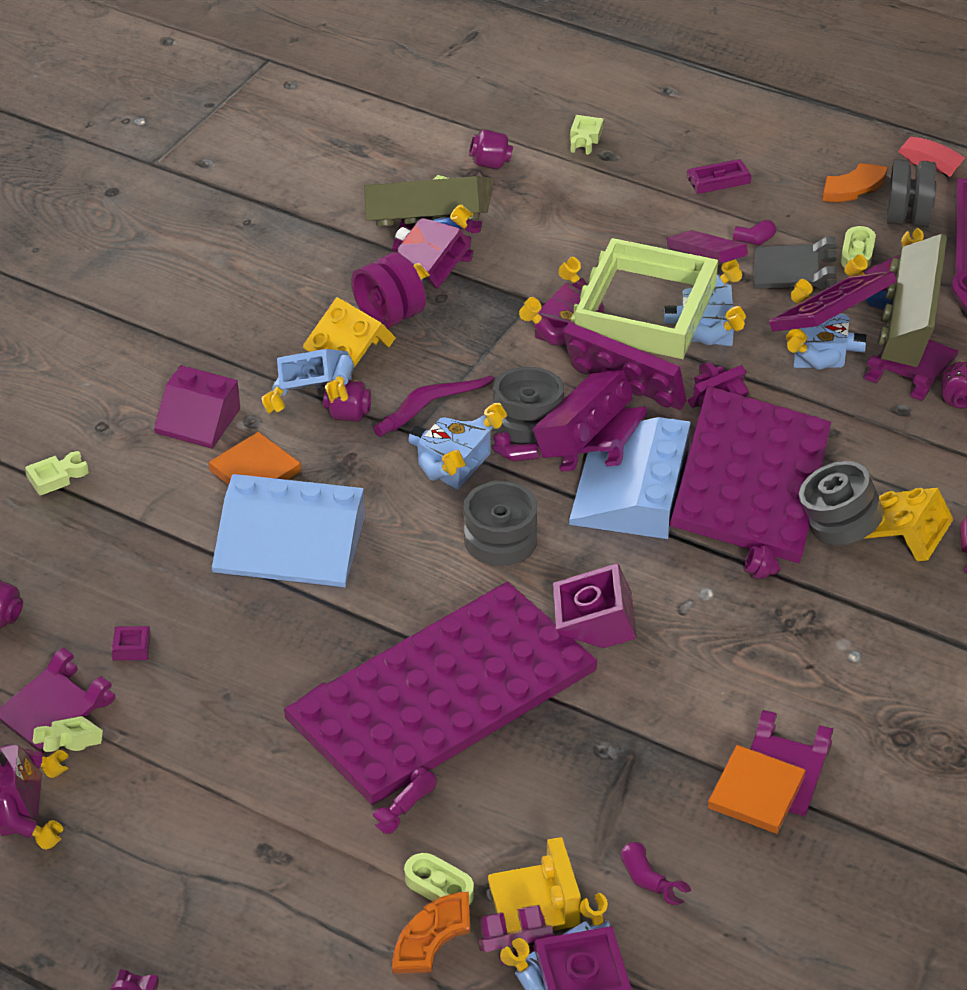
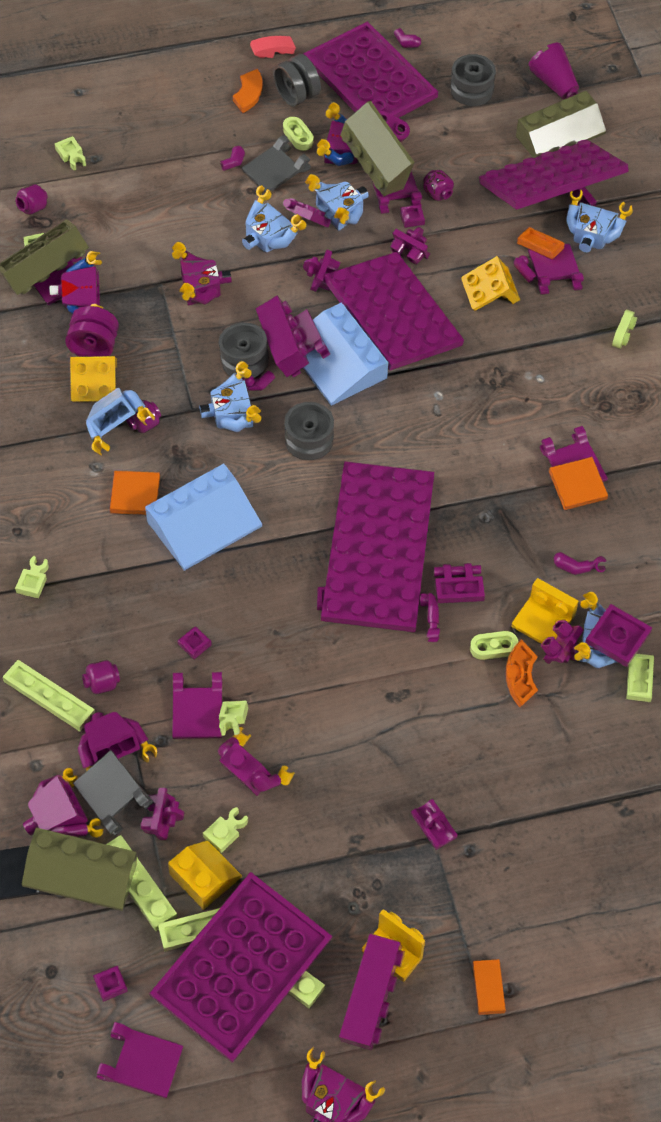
camera: 45 degrees left, 15 degrees up
(197, 406) = (64, 480): magenta slope -> none
(421, 397) = (172, 388): magenta piece -> none
(474, 796) = (459, 588): none -> magenta plate
(595, 607) = (407, 443): magenta slope -> none
(644, 372) = (257, 293): magenta plate -> none
(656, 263) = (230, 212): yellowish green window -> none
(707, 246) = (230, 186): magenta tile -> none
(719, 176) = (176, 133): magenta tile -> none
(760, 315) = (306, 211): none -> magenta plate
(761, 562) = (449, 359): magenta plate -> none
(832, 301) = (341, 179): magenta tile -> none
(841, 503) = (460, 297): dark grey wheel -> none
(868, 418) = (413, 241): none -> magenta hips
(898, 401) = (412, 216): none -> magenta tile

